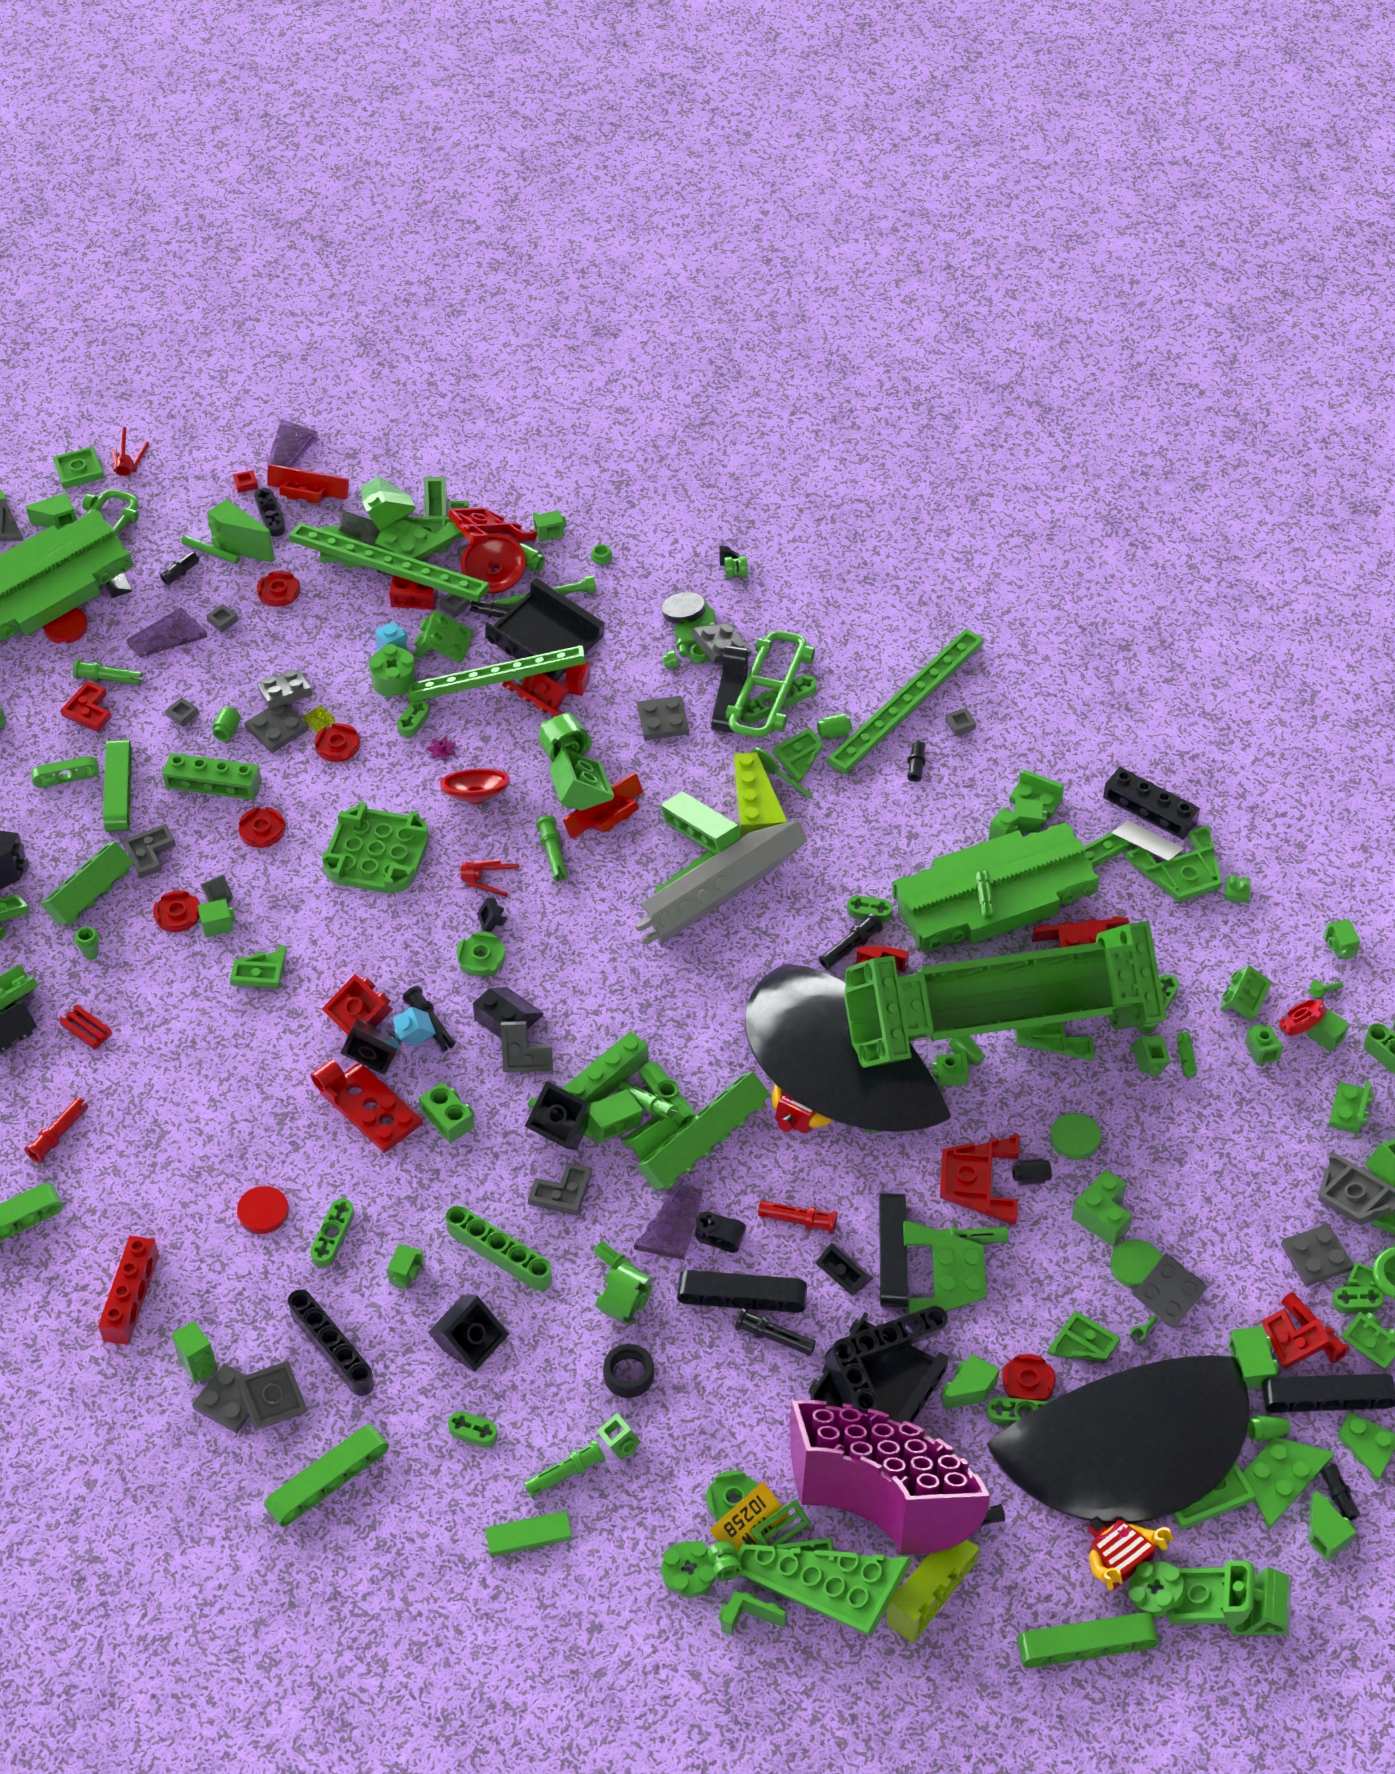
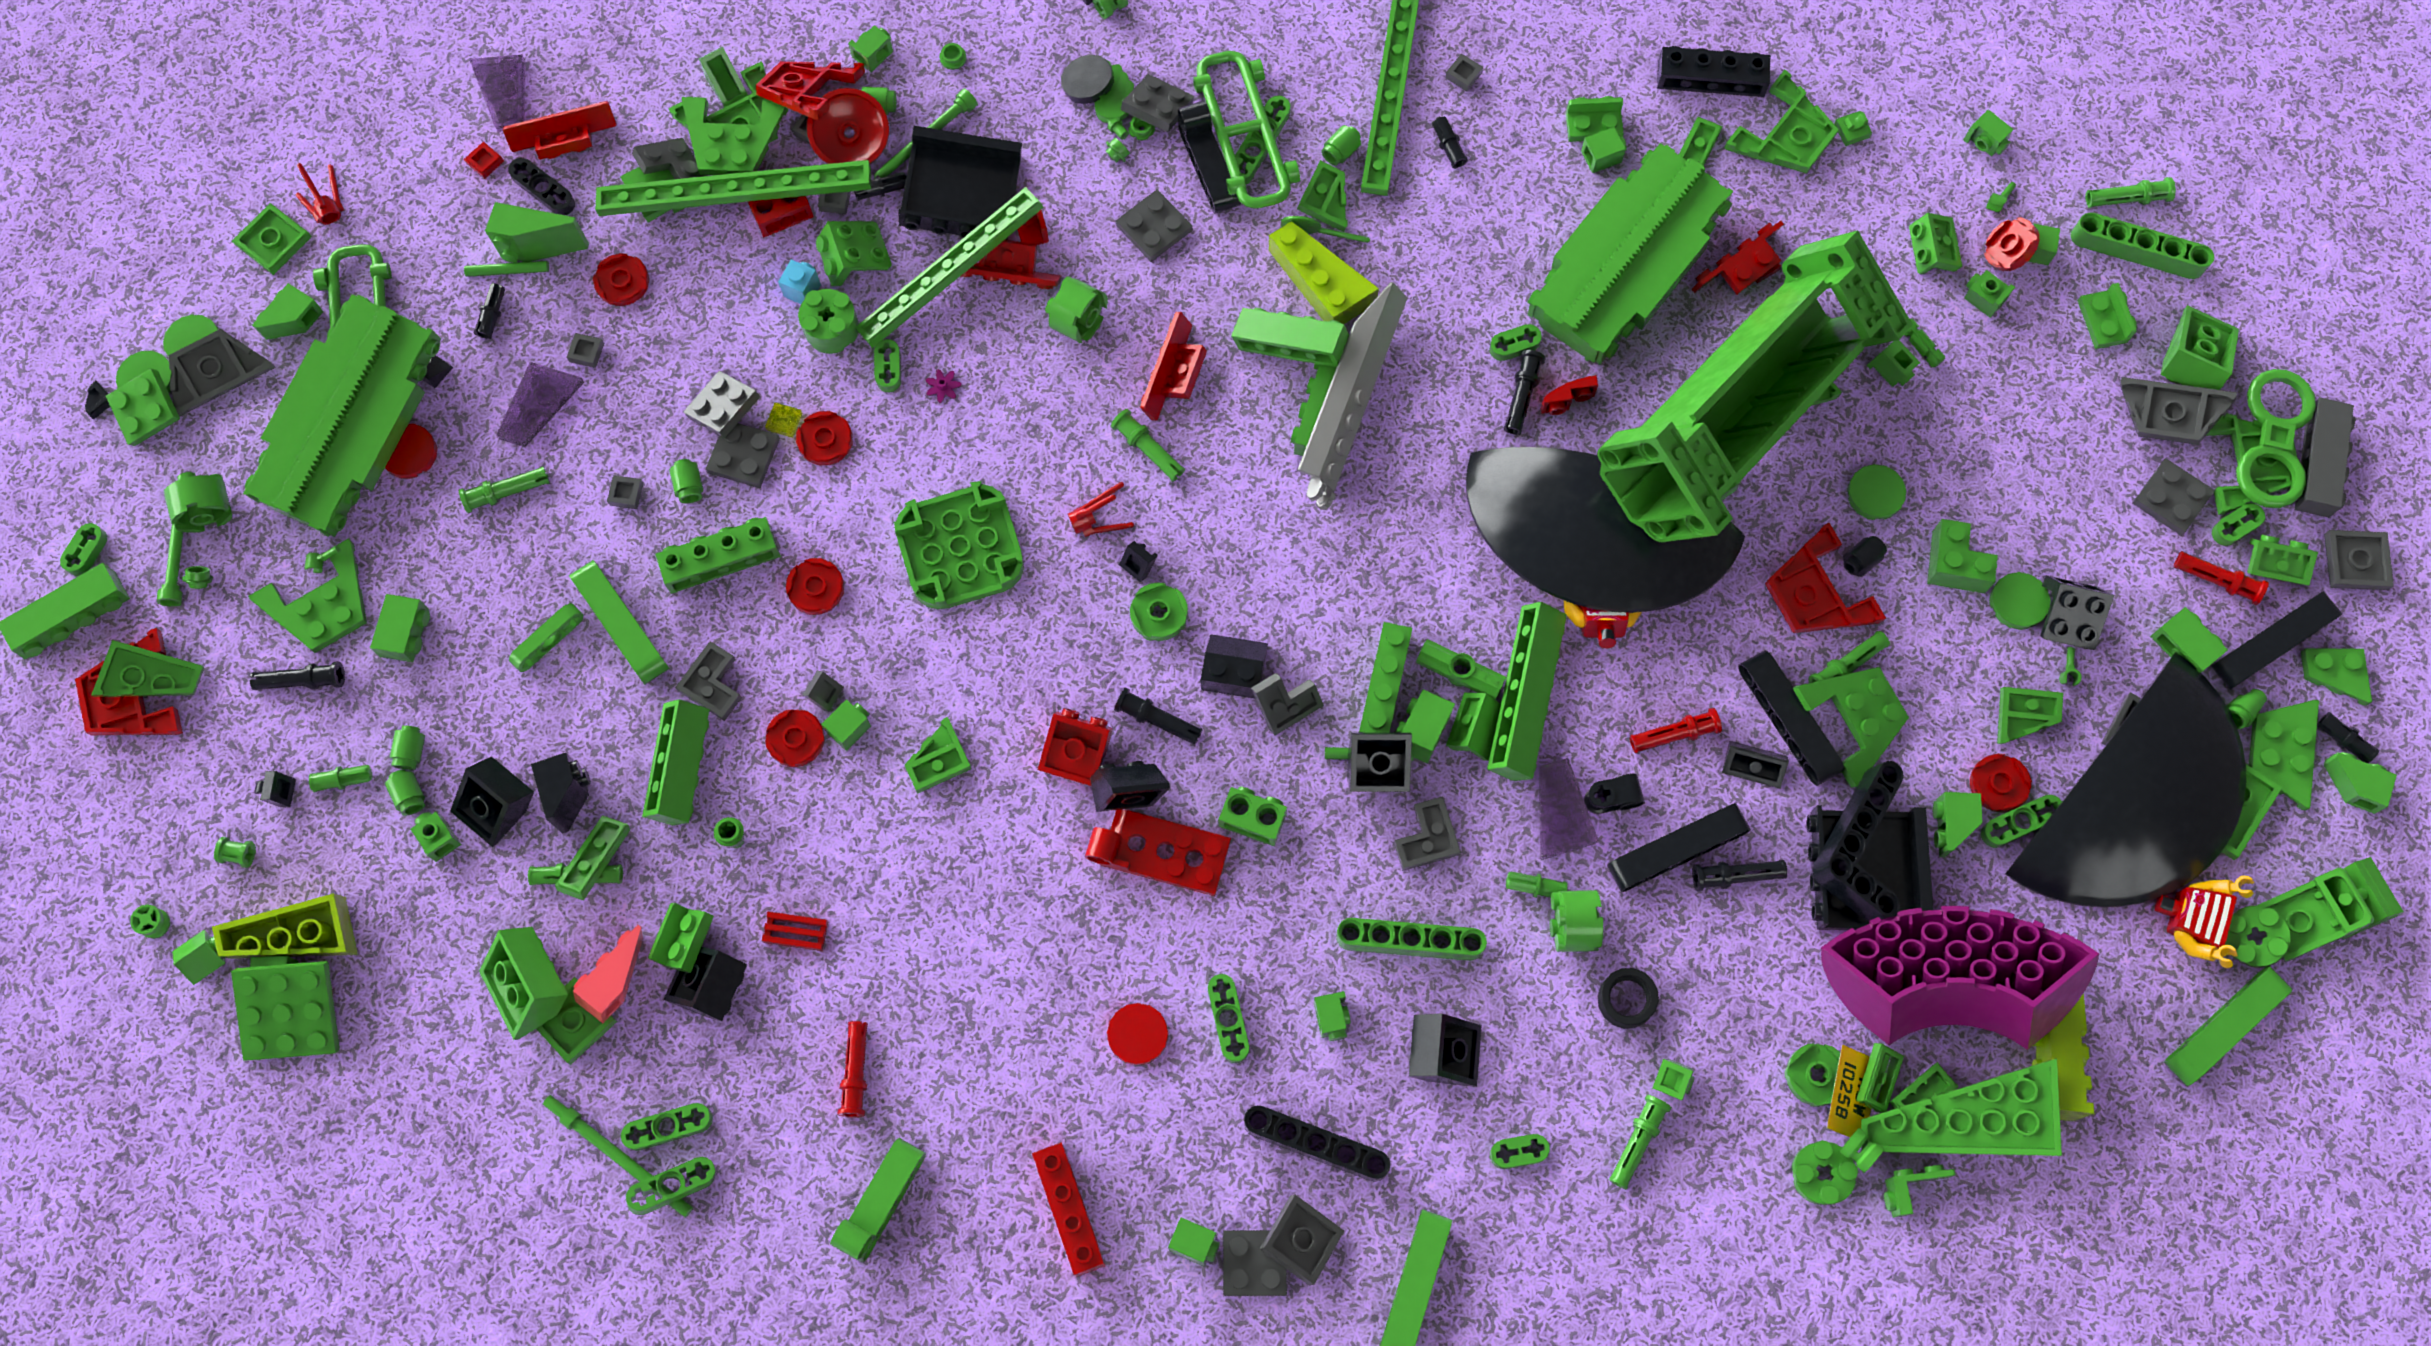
camera: 30 degrees left, 20 degrees up
(83, 707) = (509, 549): red plate -> none
(385, 502) = (672, 110): bright green wedge -> none
(413, 1026) = (1153, 739): medium azure brick -> none
(475, 784) = (1017, 413): red dish -> none
(528, 1533) = (1648, 1229): bright green tile -> none
(579, 780) = (1128, 352): bright green slope -> none
(653, 1103) = (1462, 691): bright green pin -> none
(985, 894) = (1639, 271): bright green axle -> none
(1003, 823) = (1592, 177): bright green brick -> none
(1148, 840) = (1736, 117): white sticker -> none
(1294, 1344) = (2219, 608): red plate -> none

